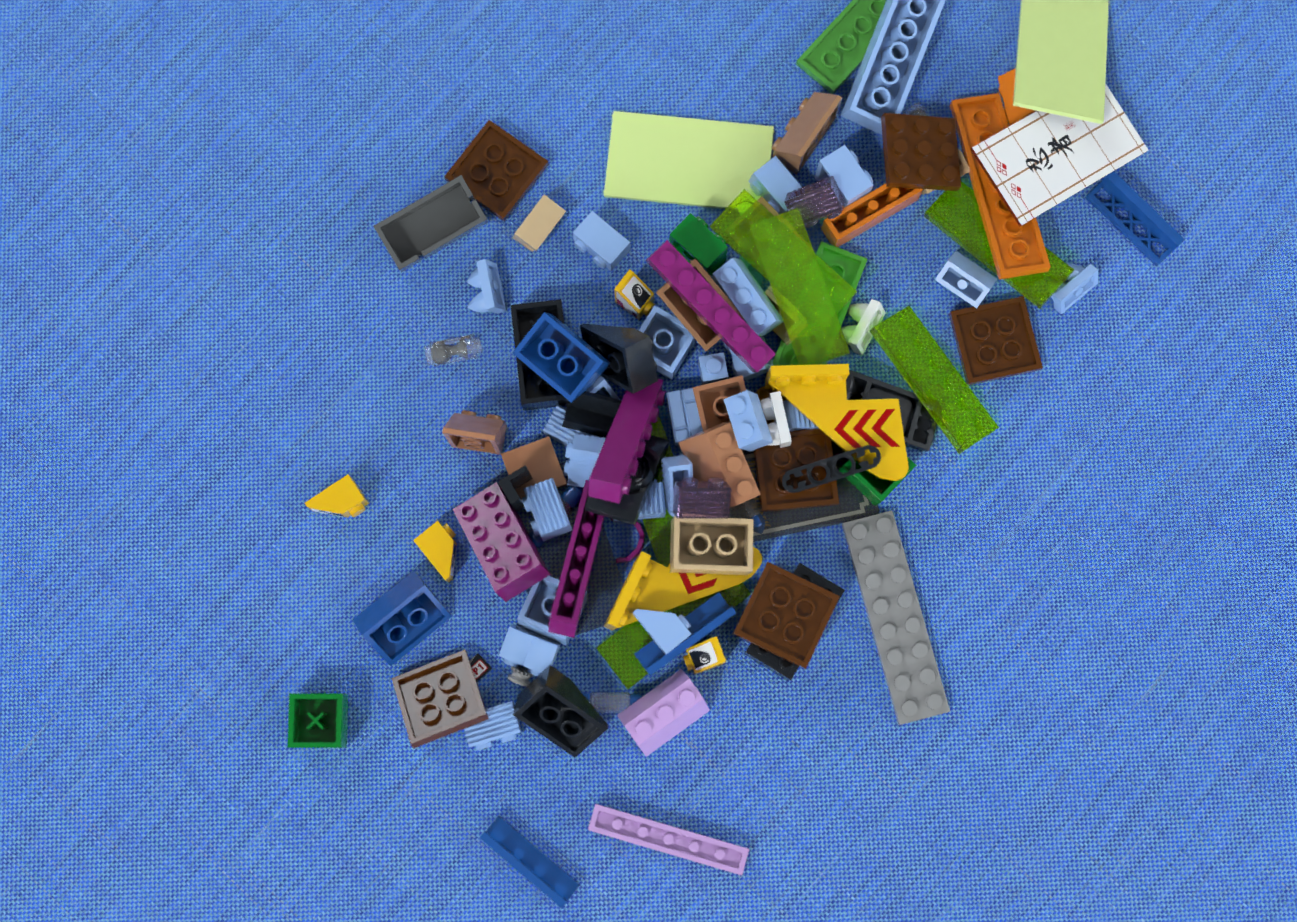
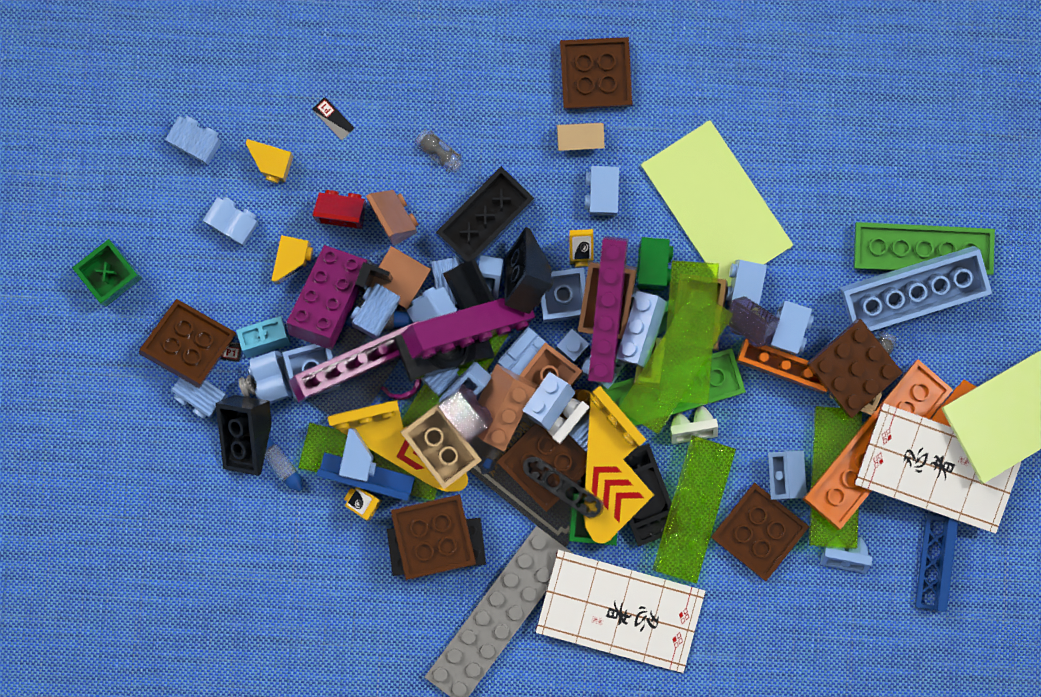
camera: 50 degrees right, 5 degrees up
(265, 551) = (193, 139): none -> light blue brick
(349, 418) = (333, 118): none -> sticker
(363, 575) = (230, 221): none -> light blue brick
(401, 618) = (222, 271): blue slope -> none
(430, 223) = (515, 61): dark grey piece -> none
(433, 472) = (340, 210): none -> red slope
(488, 628) = (263, 337): none -> medium azure hinge
(491, 297) = (510, 133): light blue tile -> none
(530, 861) = (127, 495): blue fence -> none
(560, 357) = (489, 233): blue slope -> none
(663, 712) = (300, 505): lavender slope -> none
(668, 839) = (218, 577): lavender plate -> none
(806, 130) = (806, 271): medium nougat slope -> none
(972, 510) = (620, 611): none -> white piece

